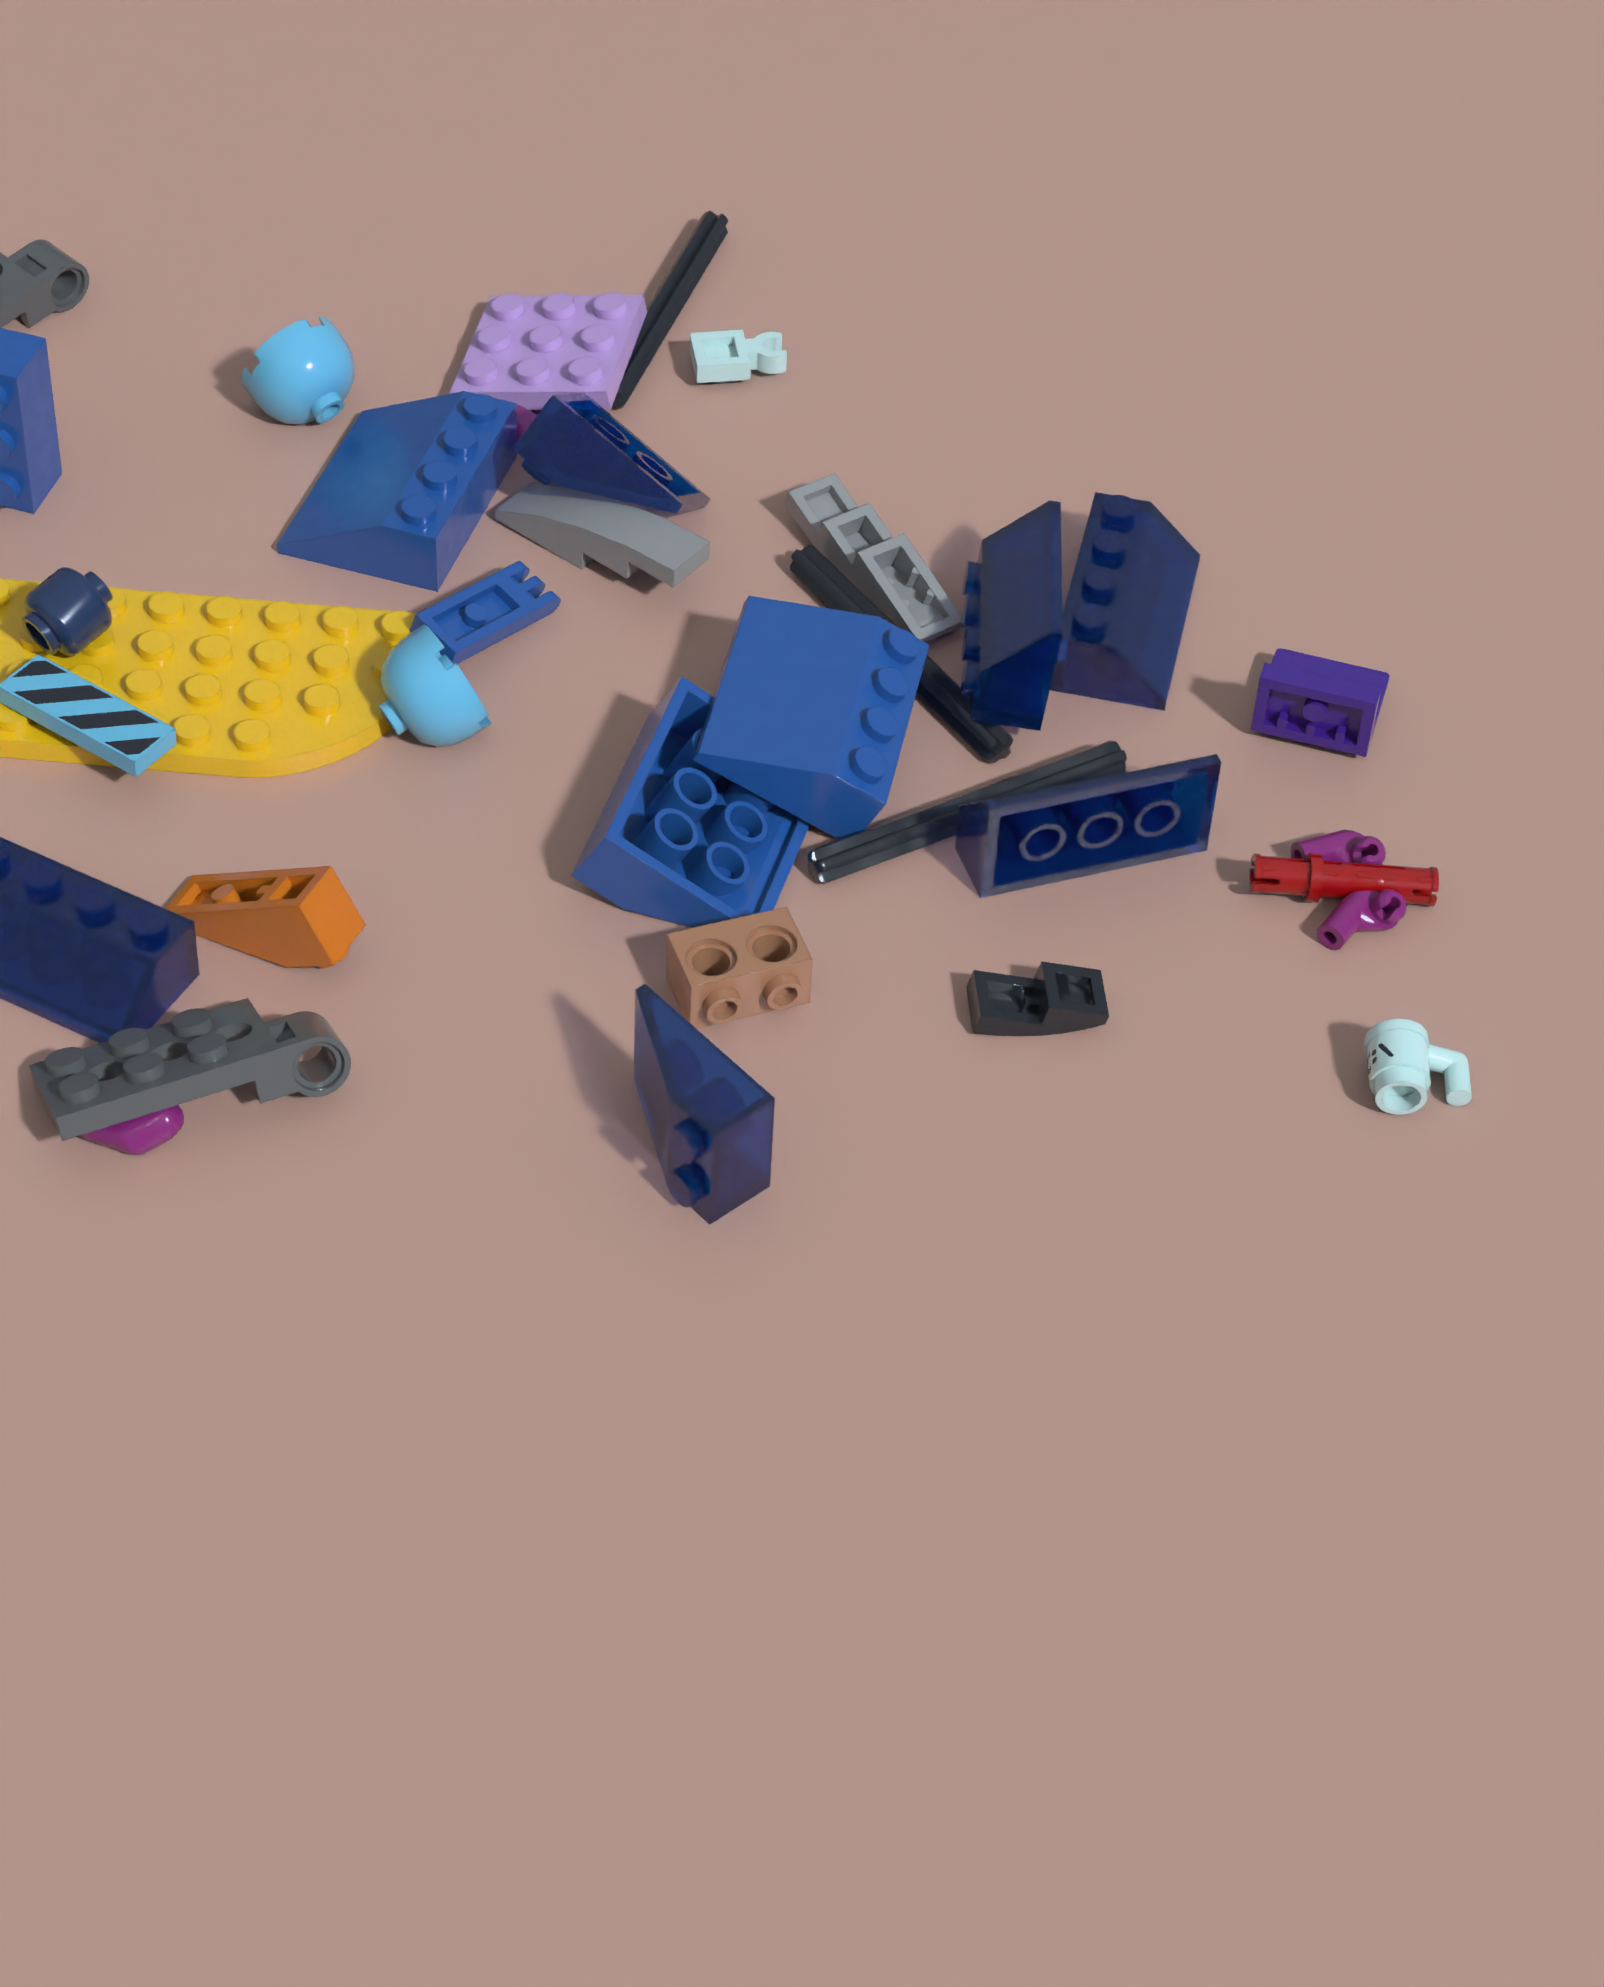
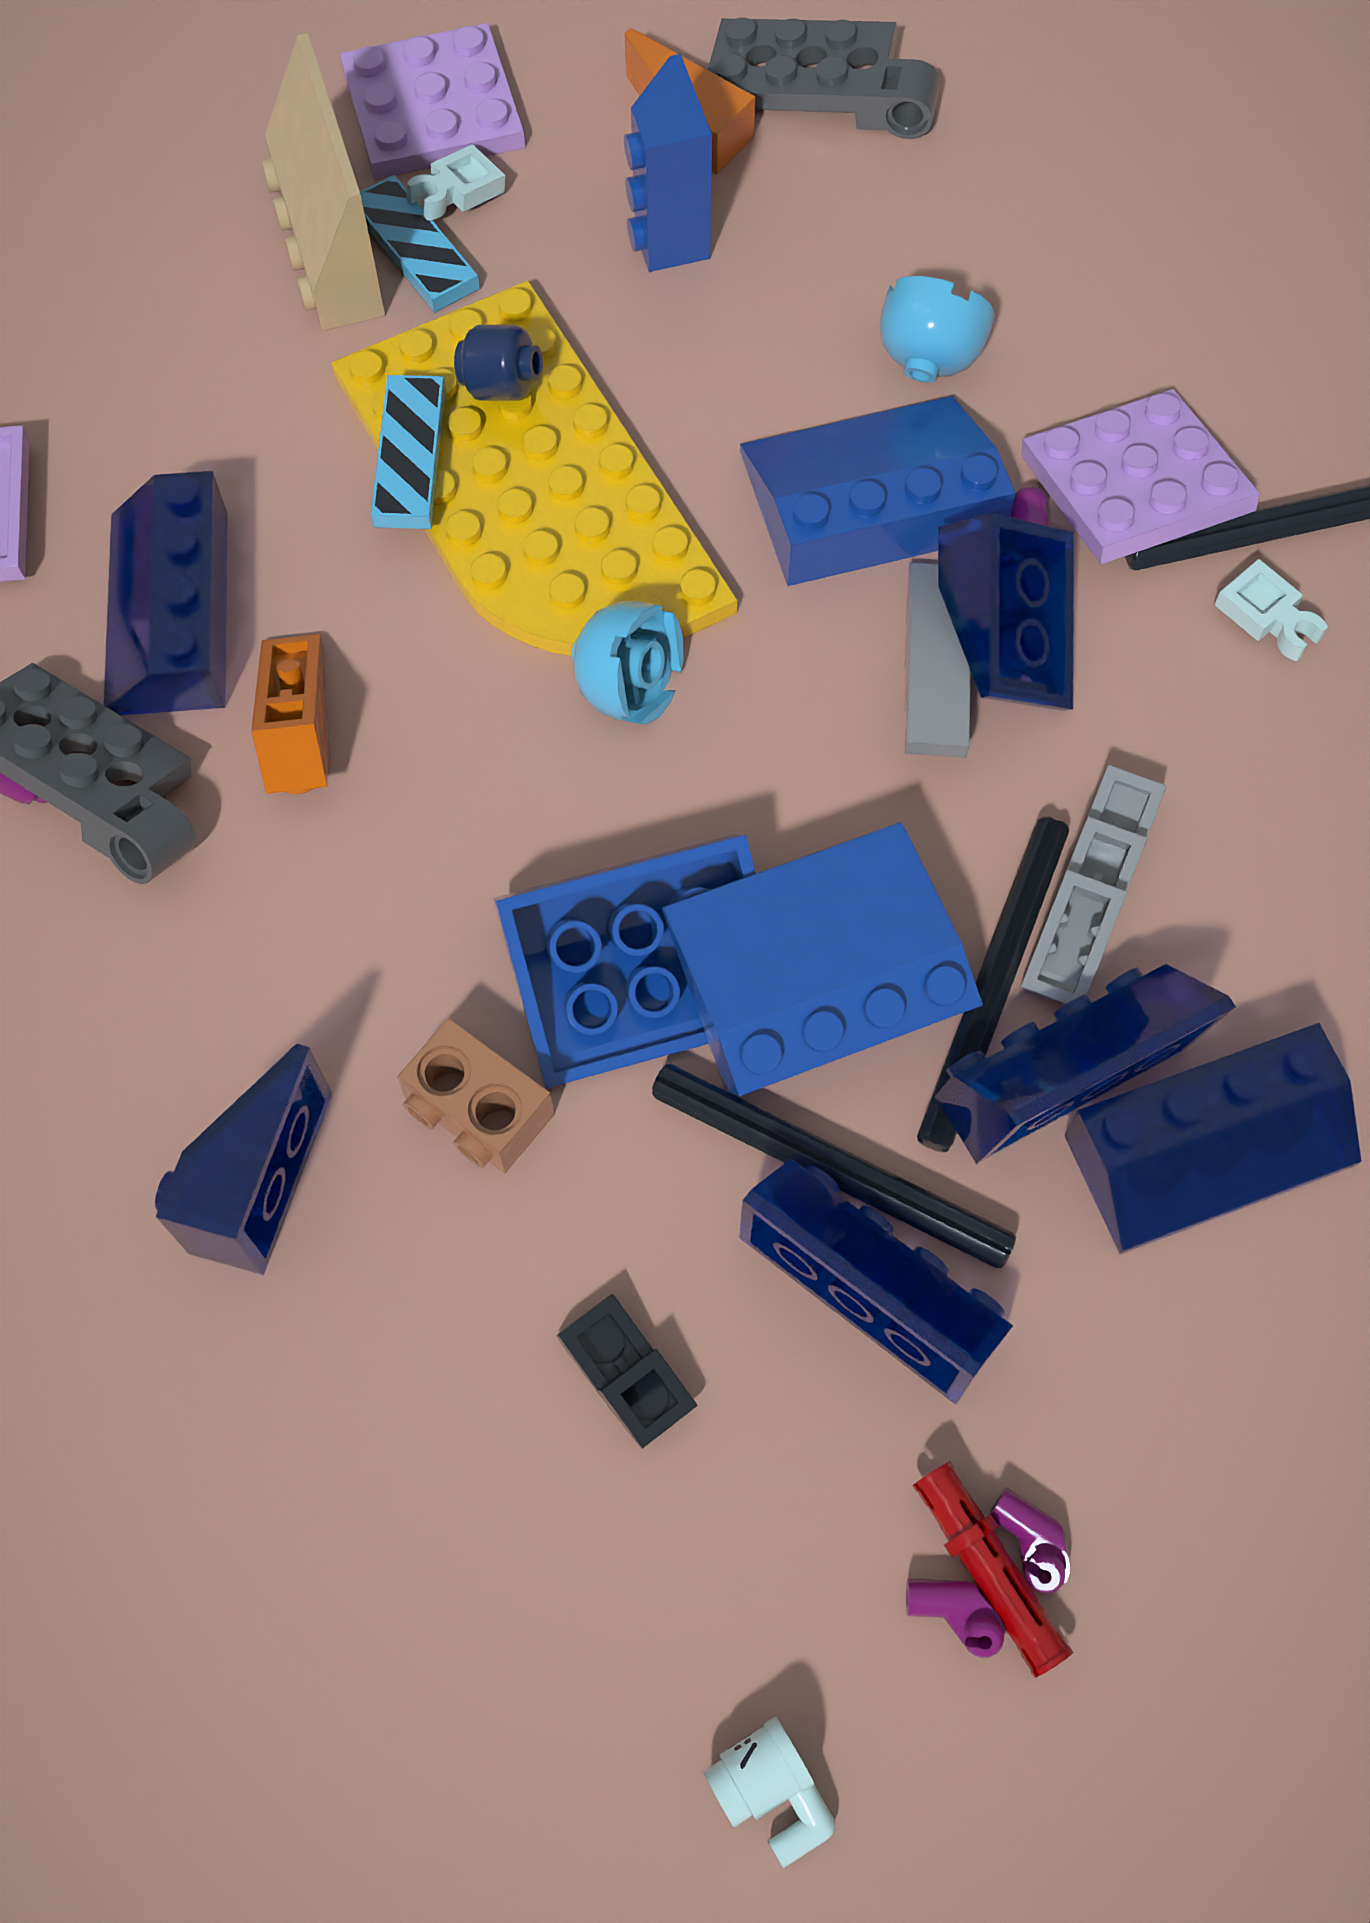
camera: 60 degrees right, 20 degrees up
(487, 612) = (765, 636): blue hinge -> none
(1319, 701) = (1237, 1398): dark purple bracket -> none

